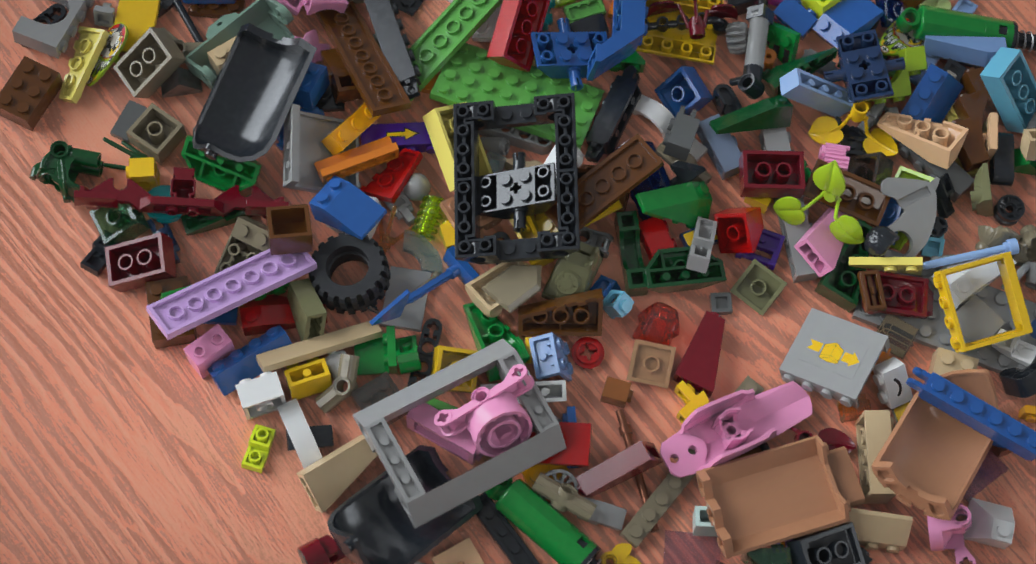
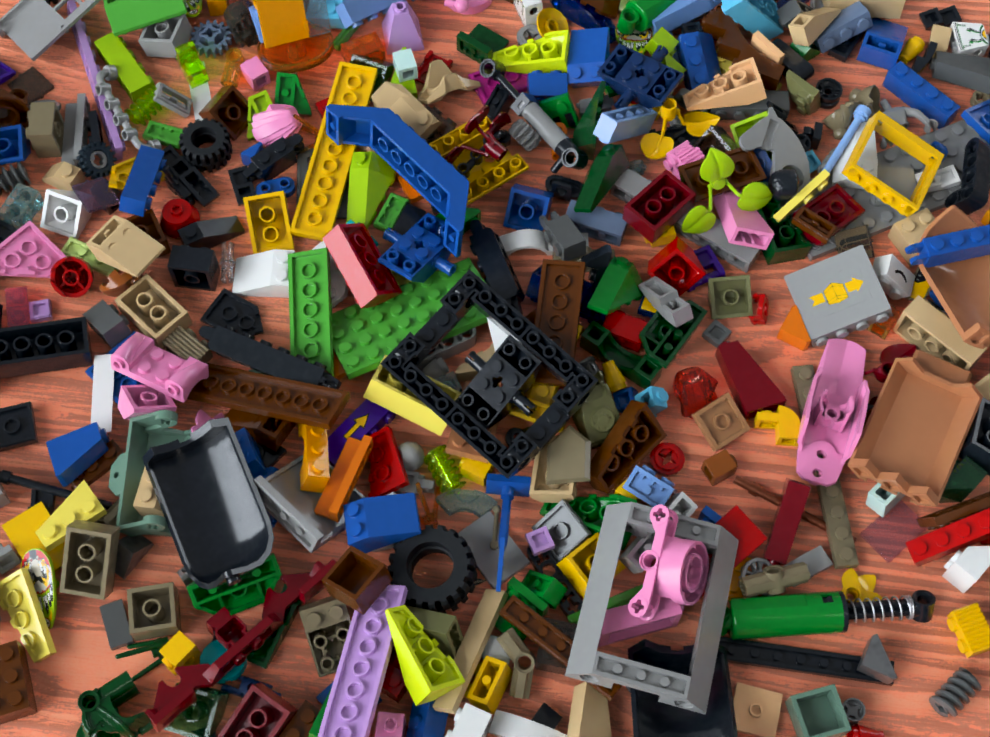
camera: 40 degrees left, 5 degrees down
(177, 23) = (79, 505): none -> light yellow wing
(274, 323) = (423, 665): none -> neon yellow wedge
(371, 377) = (545, 636): none -> reddish brown tile
(439, 321) = (540, 541): none -> lavender plate
(462, 328) = (565, 529): none -> tile
(611, 263) = (613, 376): none -> yellow cone
(763, 320) = (762, 313): none -> red piece
(776, 351) = (794, 331): none -> orange slope
(797, 135) = (638, 166): none -> clear light blue plate
(959, 230) = (814, 134): none -> black tile

